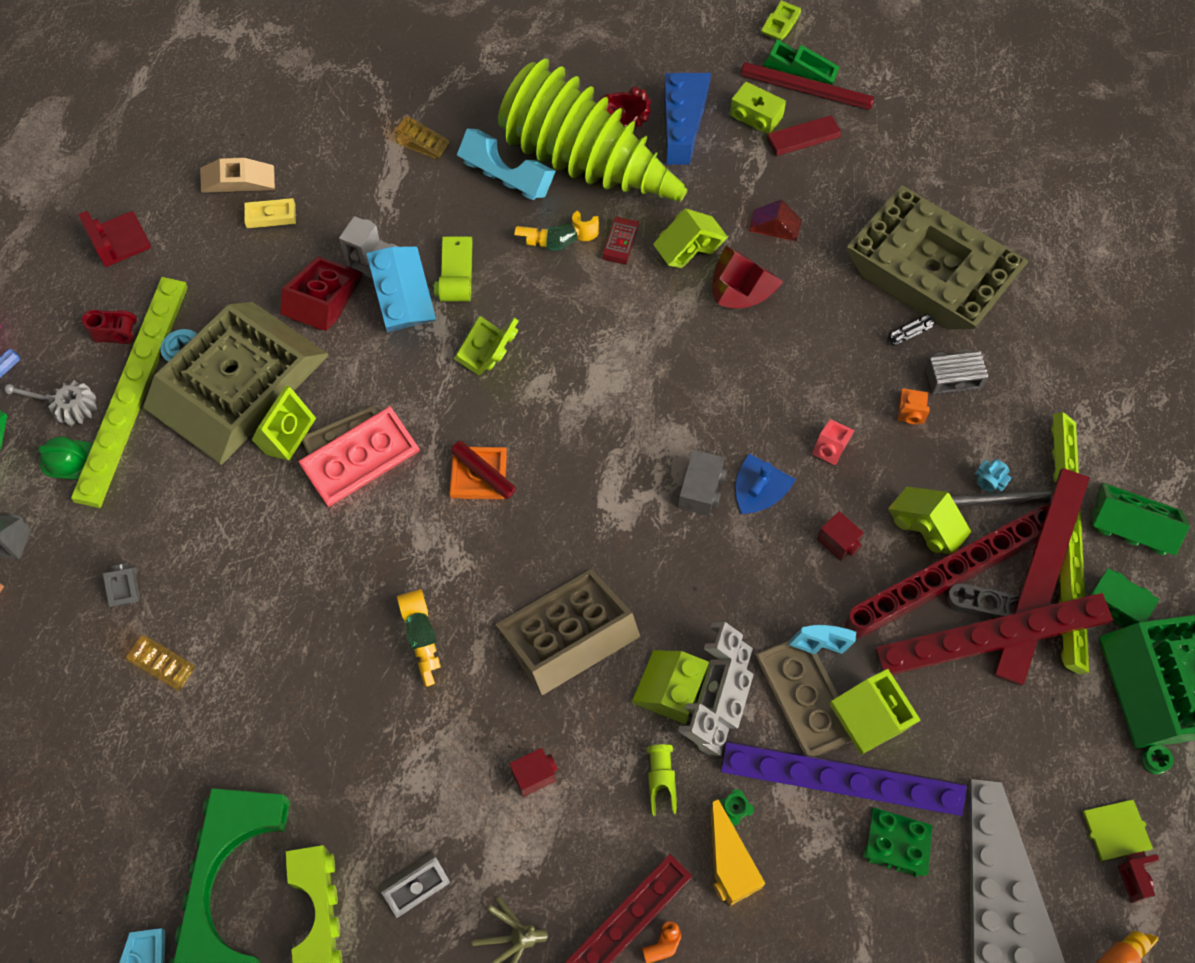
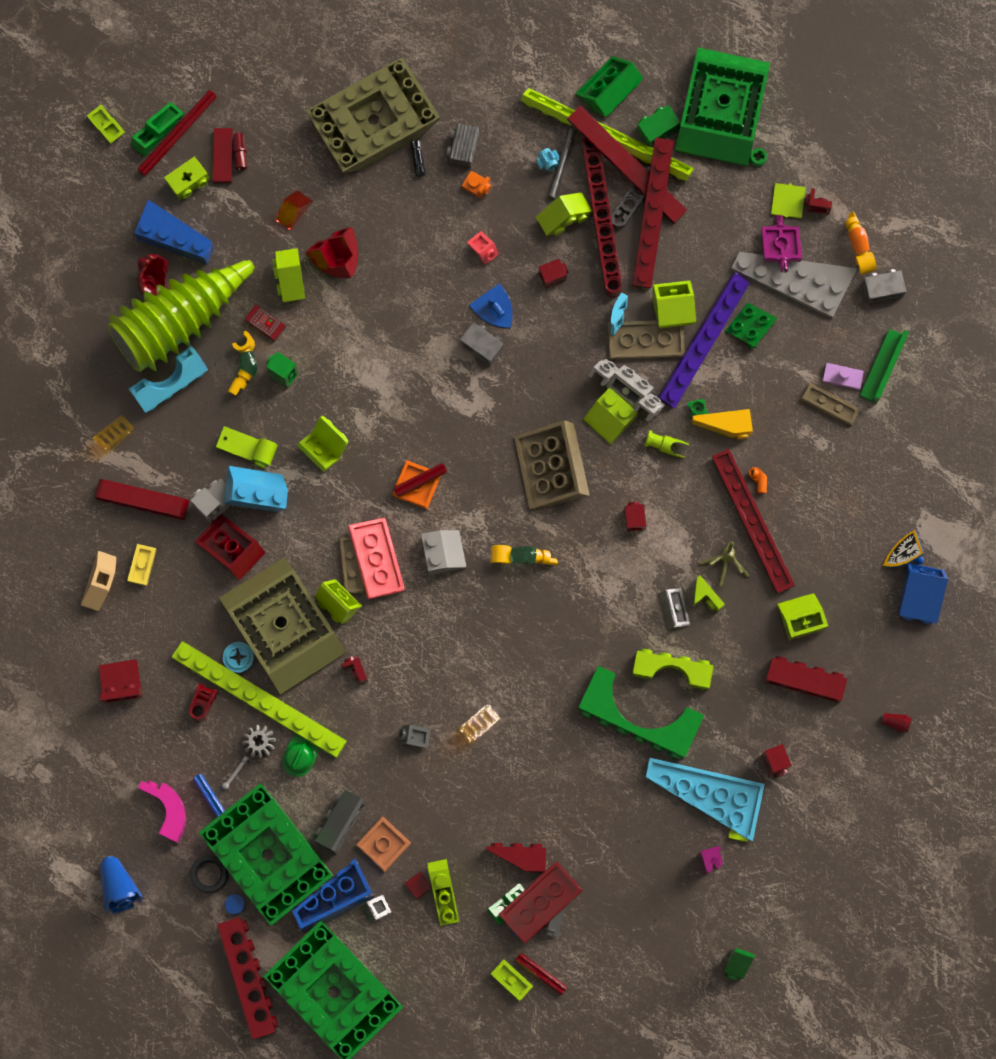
camera: 70 degrees left, 15 degrees up
(200, 484) = (358, 672): none -> dark red bracket
(350, 181) = (141, 499): none -> dark red beam
(394, 531) = (443, 551): none -> light grey slope
(453, 916) = (702, 591): none -> lime slope
(564, 267) = (282, 369): none -> green brick
(816, 148) = (239, 151): none -> dark red axle
(1045, 841) = (781, 244): none -> magenta plate

